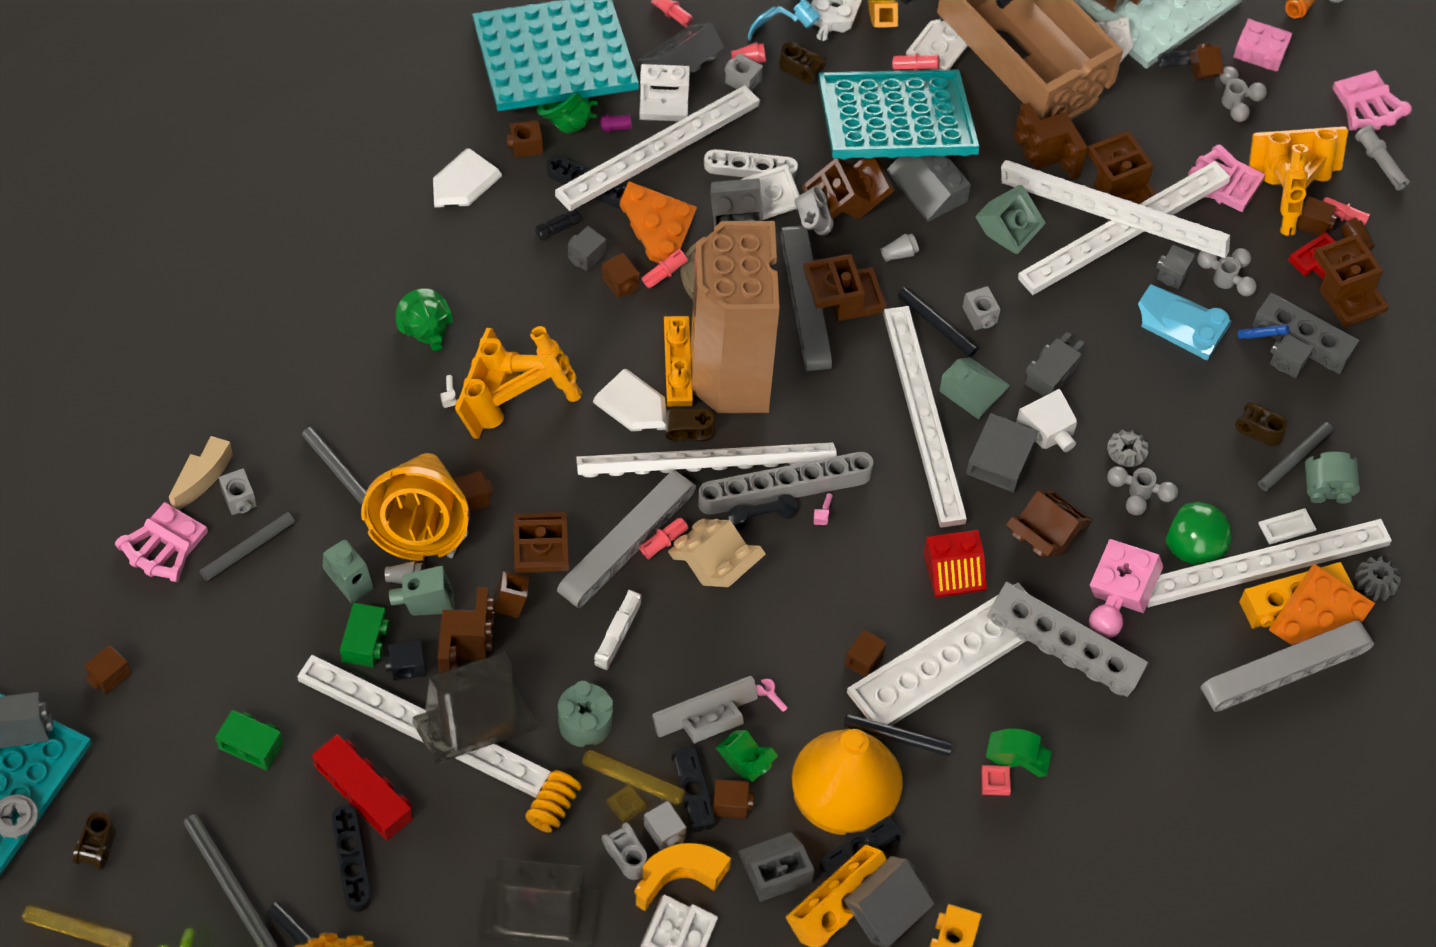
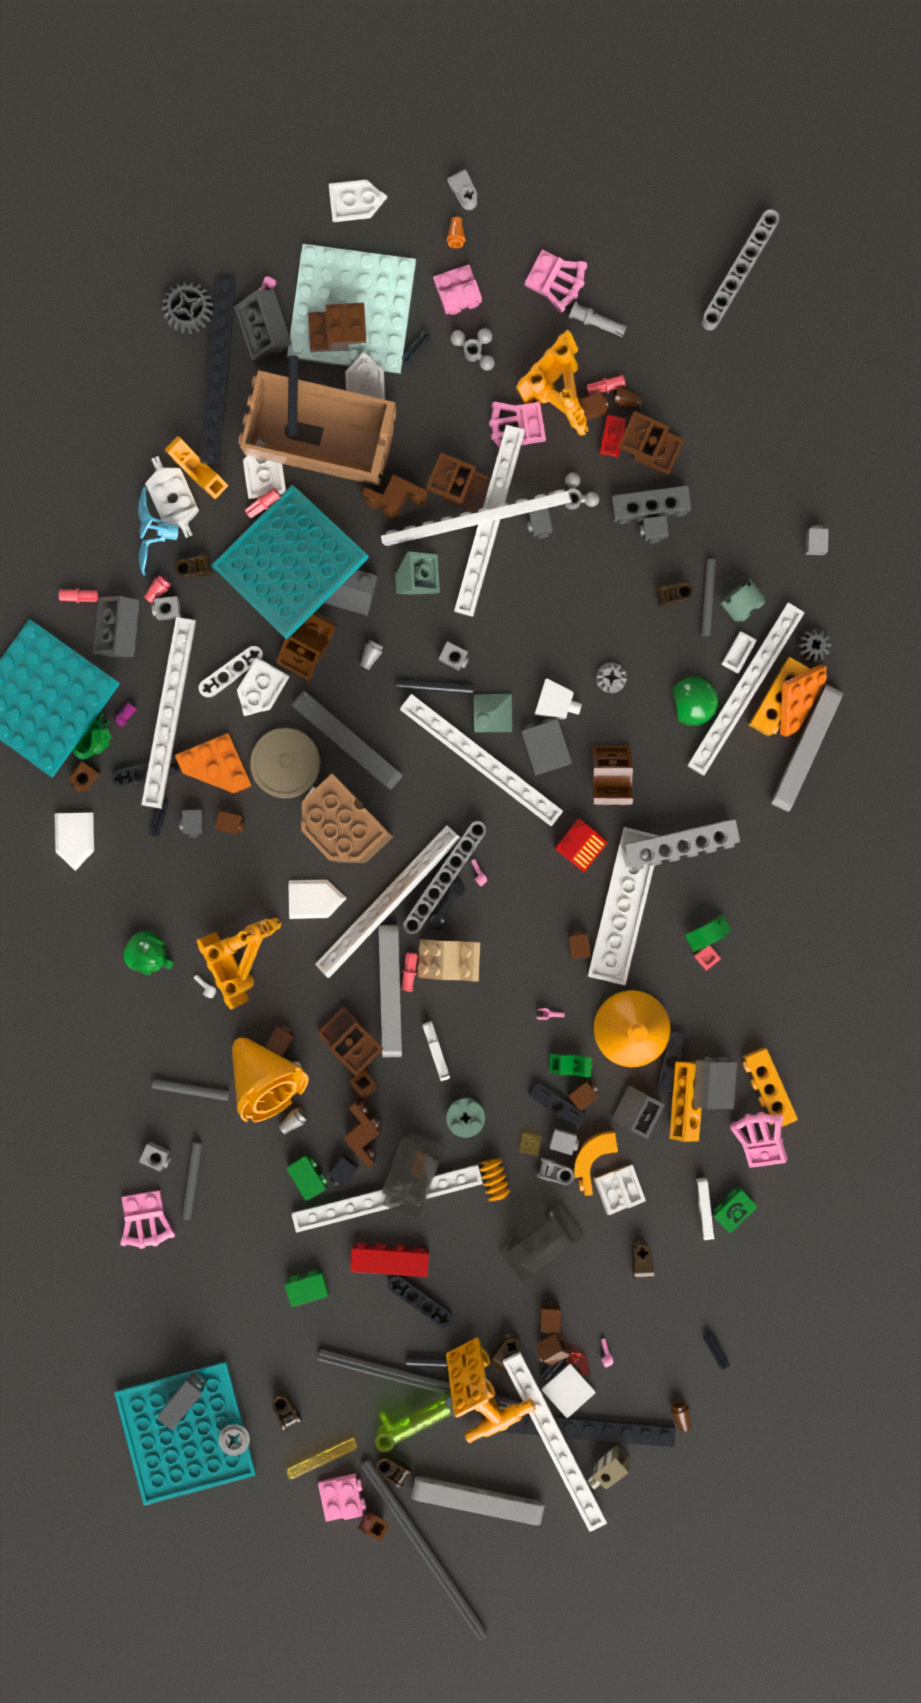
camera: 35 degrees left, 30 degrees up
(107, 670) = (194, 1319): reddish brown brick -> none
(201, 472) = (123, 1163): tan slope -> none
(344, 564) = (262, 1150): sand green torso -> none
(425, 592) = (316, 1126): sand green torso -> none
(633, 777) = (522, 1128): clear yellow axle -> none
(664, 104) = (142, 673): white window -> none
(664, 269) = (250, 795): coral axle -> none
(678, 361) = (330, 869): light orange plate -> none
(688, 423) = (356, 890): dark brown piece -> none
(708, 712) = (529, 1057): light grey bracket -> none
(736, 200) = (254, 715): dark grey slope -> none
(814, 211) = (300, 679): light grey piece -> none
(844, 287) = (366, 718): reddish brown bracket -> none
(898, 735) = (637, 981): black piece -> none
(1054, 366) = (528, 659): dark grey hinge -> none
(1122, 579) = (684, 786): bright pink brick -> none
(1139, 494) = (646, 715): light grey piece -> none
(1183, 321) = (573, 556): medium azure slope -> none
(1206, 61) = (437, 341): reddish brown brick -> none
(1264, 331) = (626, 526): blue wheel -> none

